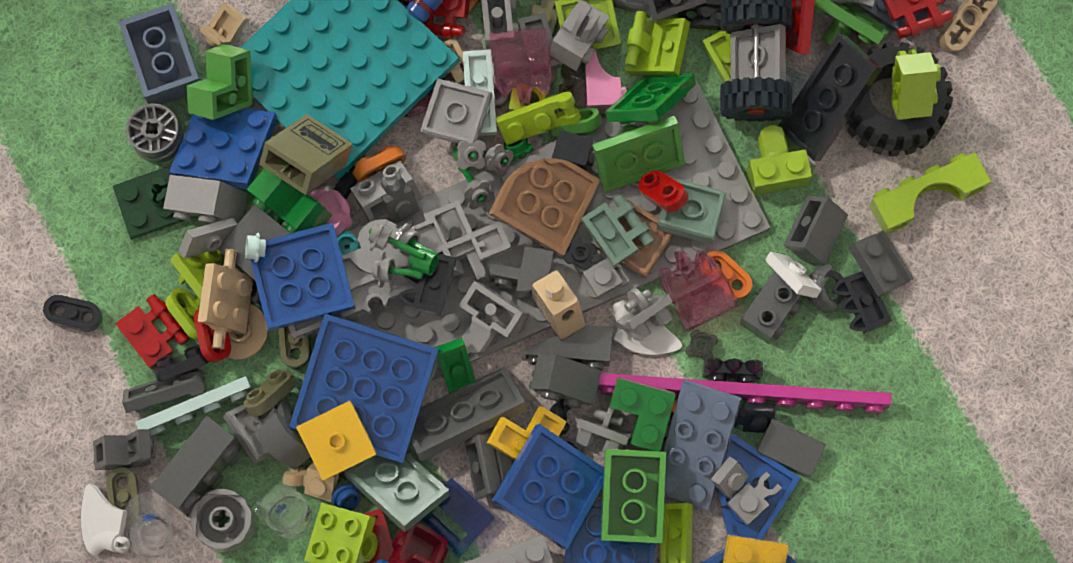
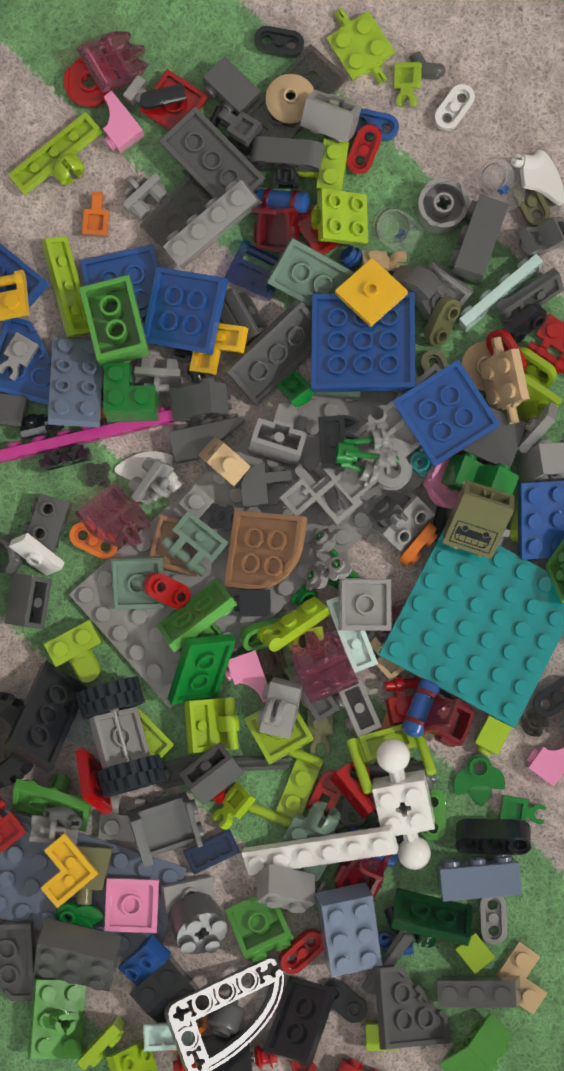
camera: 165 degrees right, 10 degrees up
(255, 247) = (491, 421): light aqua plate -> none
(729, 477) = (41, 364): light grey plate -> none

